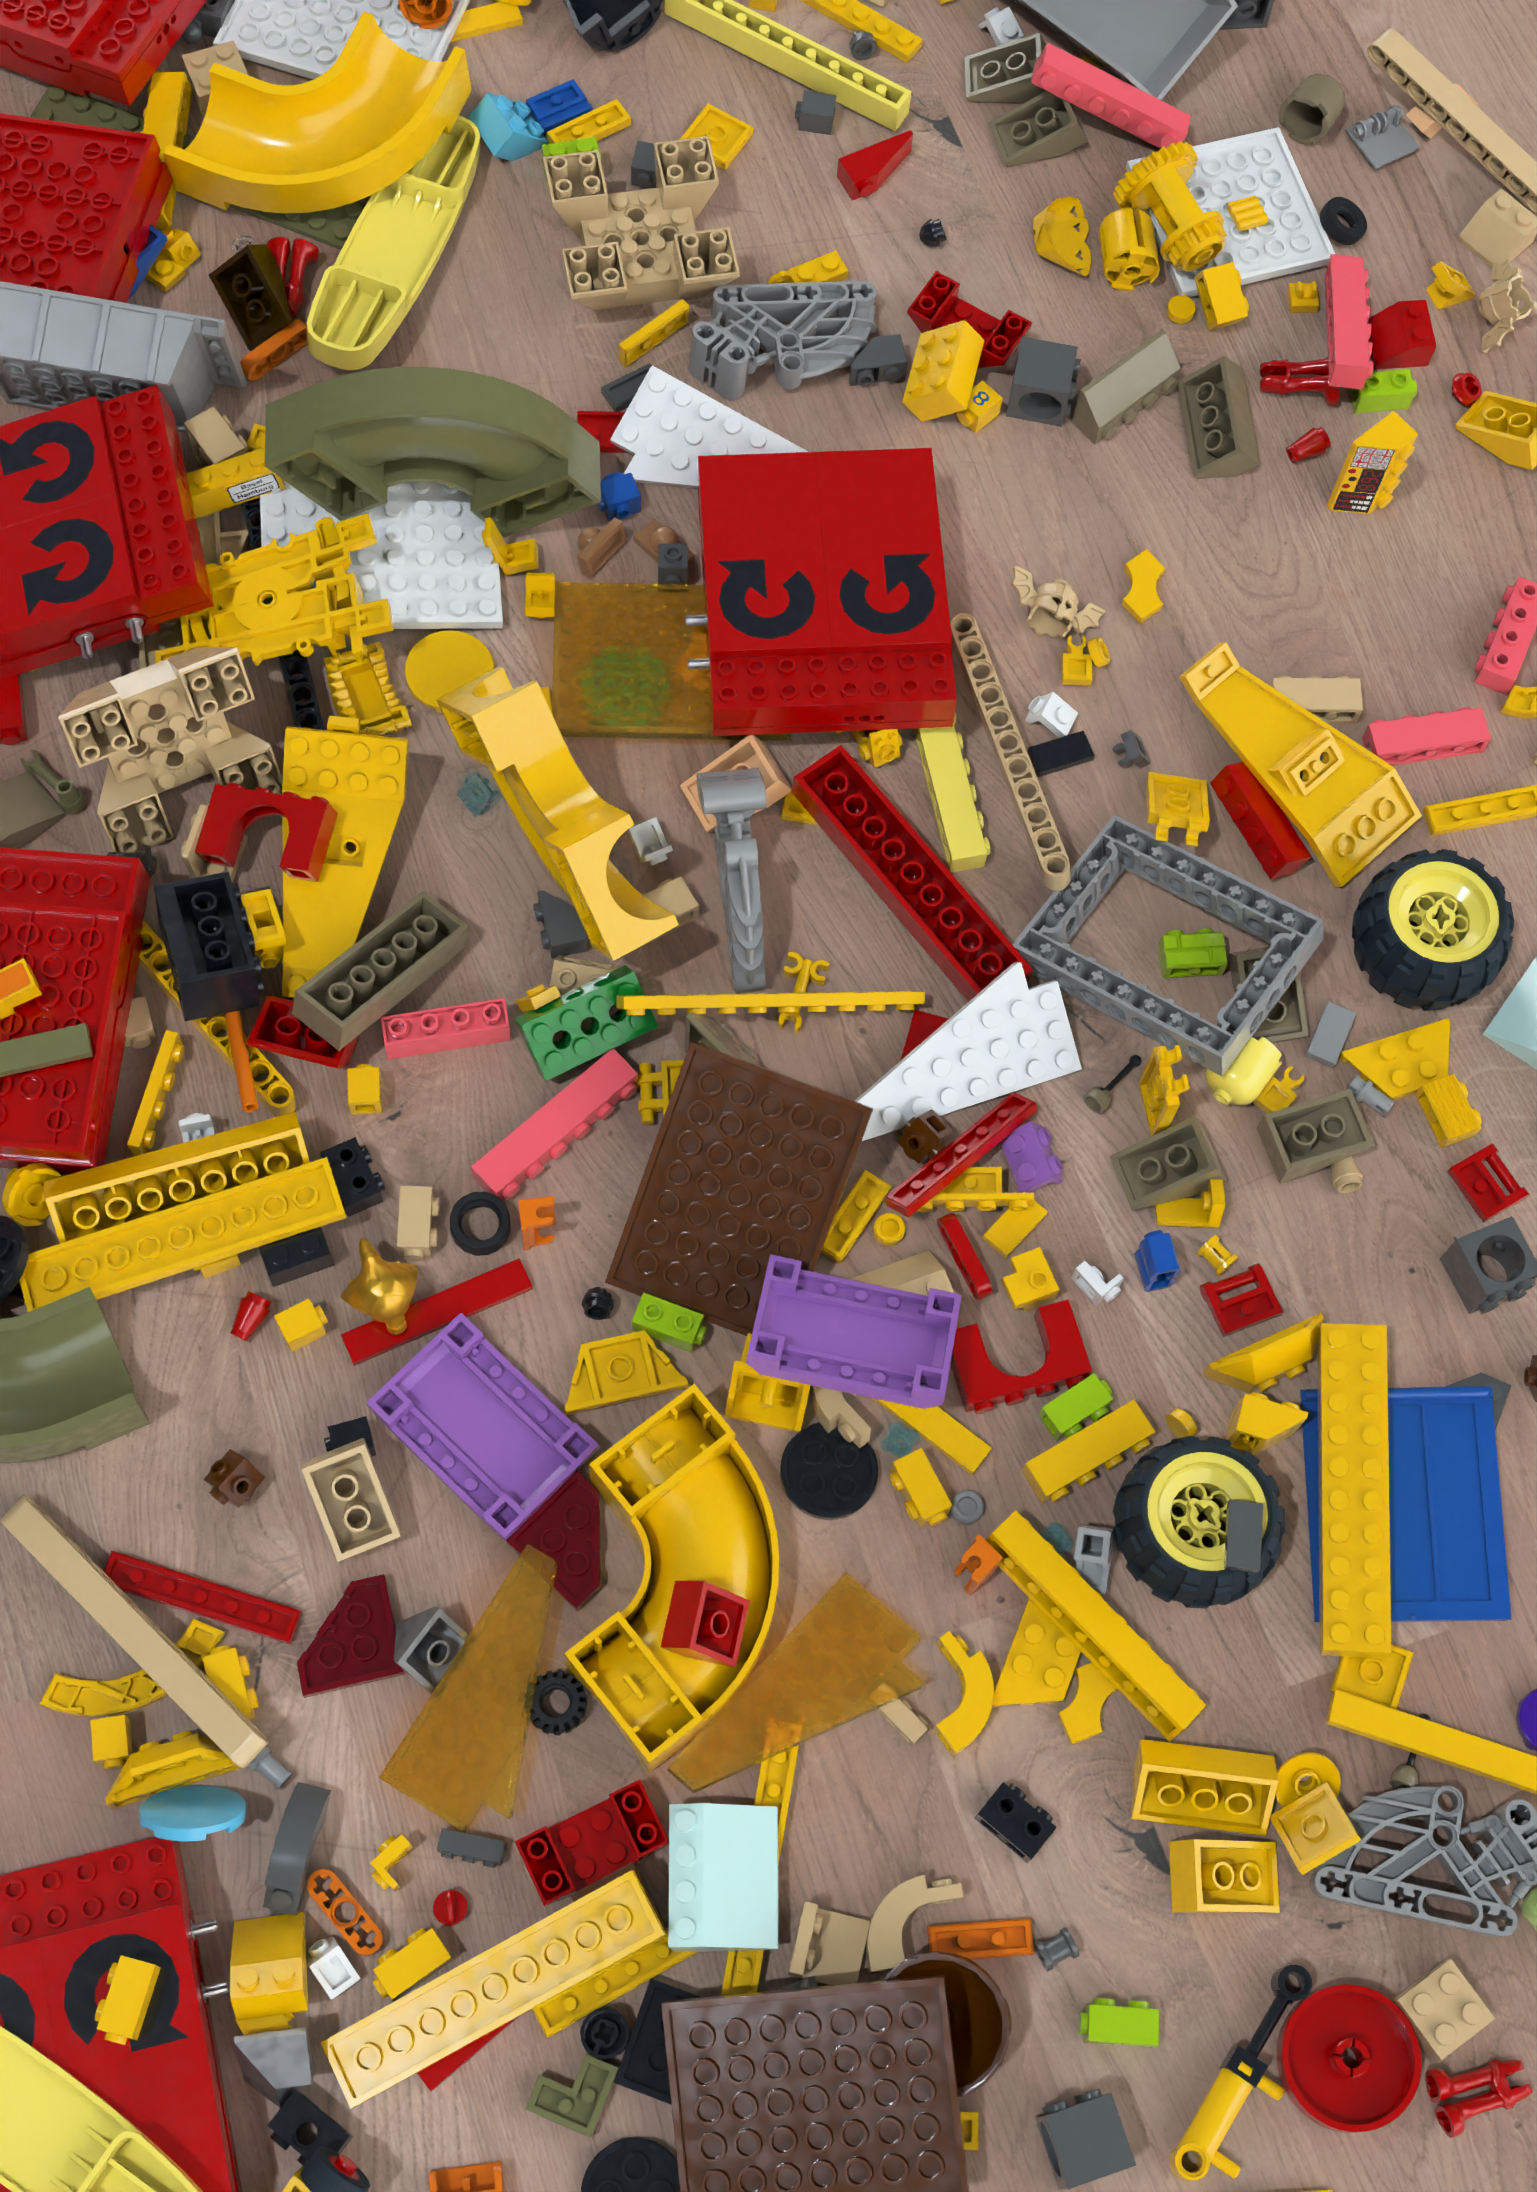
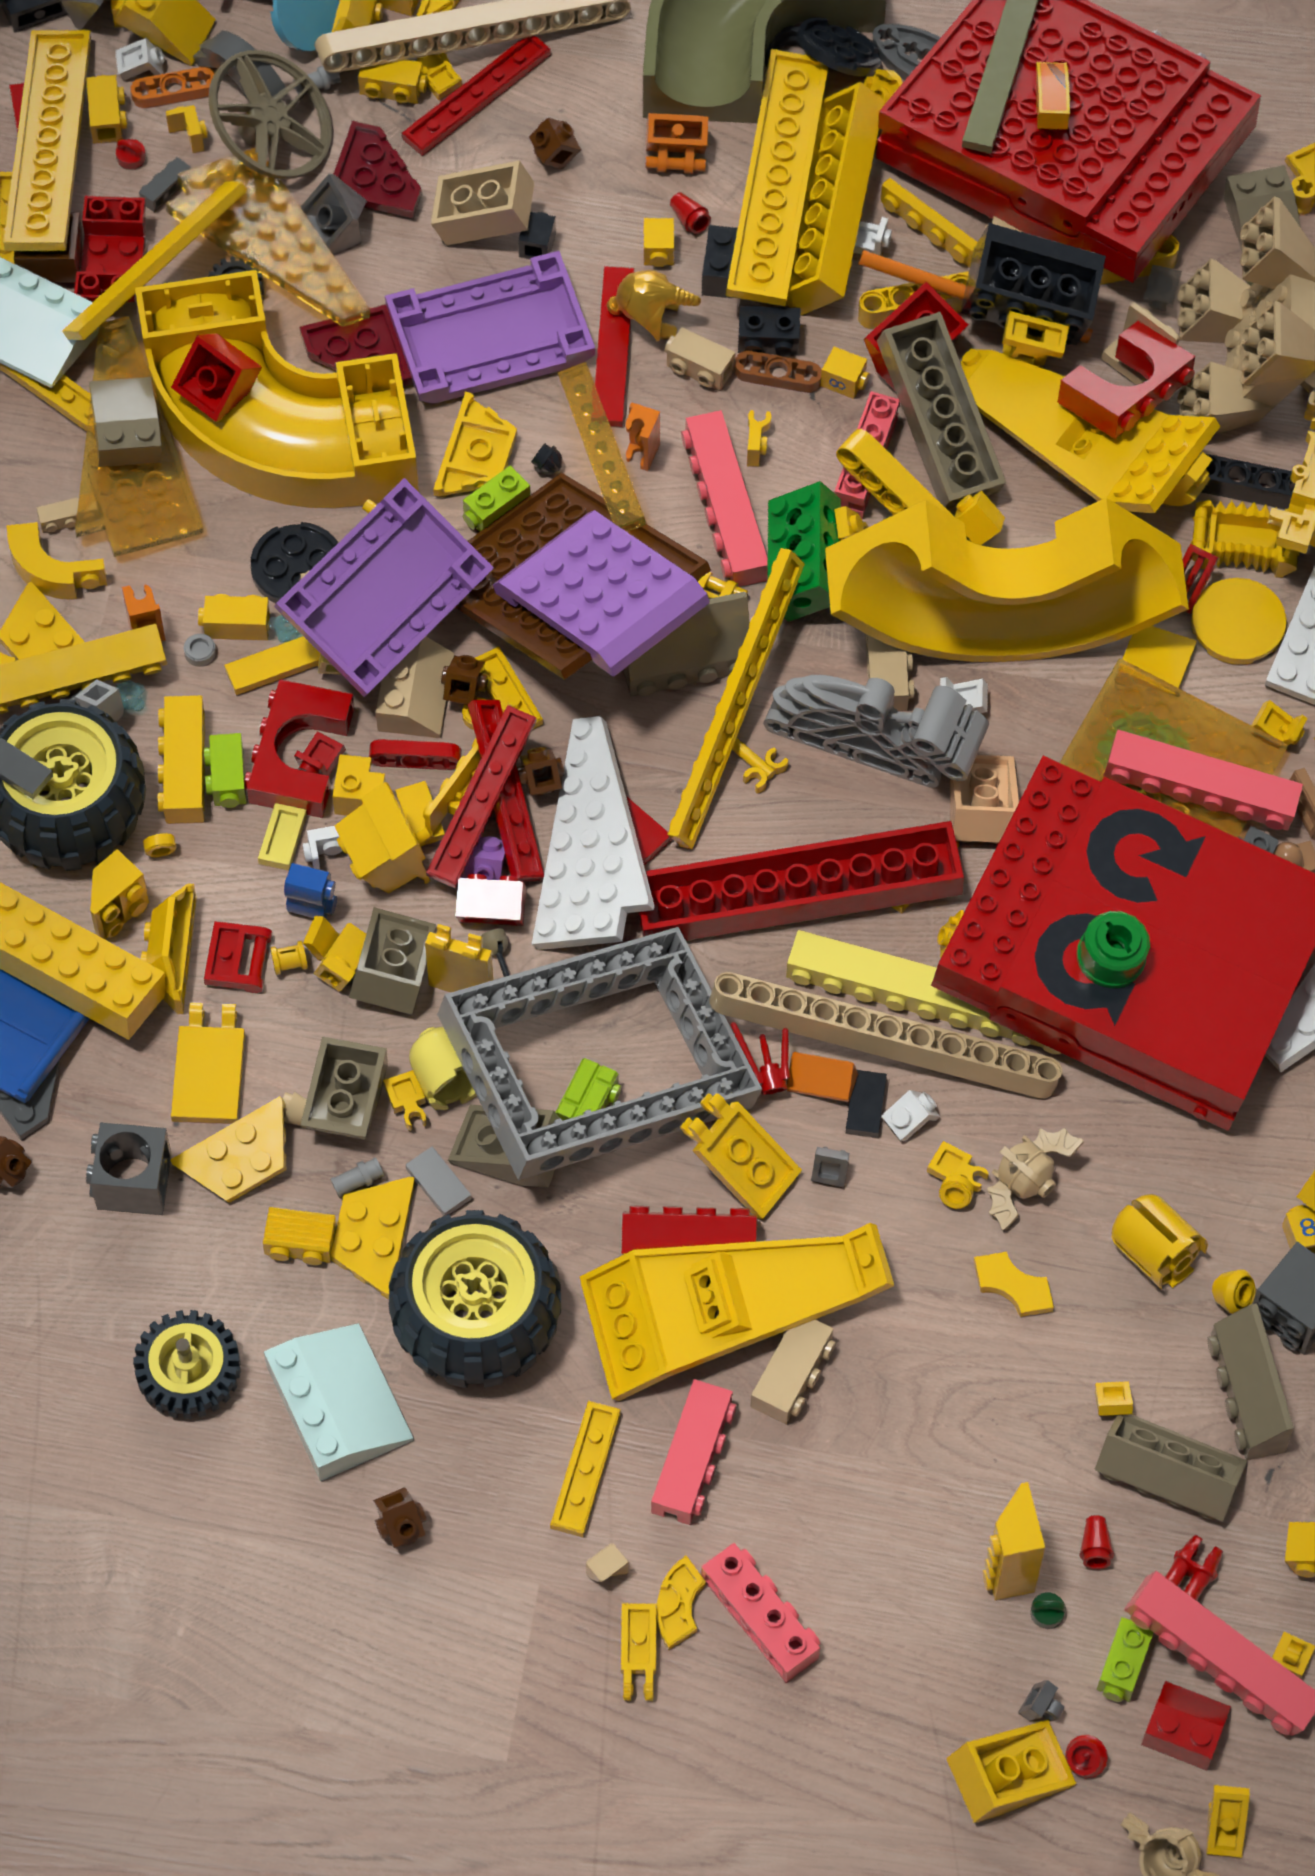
camera: 125 degrees right, 5 degrees down
(173, 1364) = (676, 134): none -> orange brick
(352, 1773) = (268, 115): none -> dark tan wheel
(392, 1129) = (770, 361): none -> dark orange beam
(423, 719) = (1205, 576): none -> red tile
(469, 900) = (980, 517): none -> yellow brick
(479, 1131) = (756, 442): none -> yellow plate
(480, 1247) = (672, 386): black tyre -> none
(482, 970) = (882, 473): none -> yellow beam
(576, 1241) = (601, 447): none -> clear yellow tile
(595, 1772) = (154, 261): none -> yellow tile
(637, 619) = (1203, 780): none -> coral brick
(759, 1131) = (604, 591): none -> medium lavender slope
(787, 1697) = (125, 422): none -> dark tan slope
(872, 571) = (1113, 949): none -> green wheel
(873, 1247) = (464, 679): none -> reddish brown brick
(987, 1160) = (481, 796): none -> red tile
(1016, 1335) = (320, 755): none -> red bracket
(1048, 473) = (1157, 1240): none -> yellow cylinder
(1057, 434) = (1234, 1290): none -> yellow cone
(1063, 790) = (821, 1076): none -> orange slope
(1069, 1114) = (491, 900): none -> brick
(1082, 1219) = (382, 842): none -> yellow piece
(1088, 825) = (771, 1076): none -> red plant
(1108, 1328) = (282, 836): none -> light yellow tile
(1187, 1238) = (320, 937): none -> yellow tile
(1192, 479) = (1113, 1398): none -> yellow tile
(1352, 1268) = (208, 1069): none -> yellow tile
(1414, 1195) = (239, 1154): none -> yellow wing
(1450, 430) = (1040, 1702): none -> flat silver tile
(1481, 1188) = (211, 1221): red plate -> none

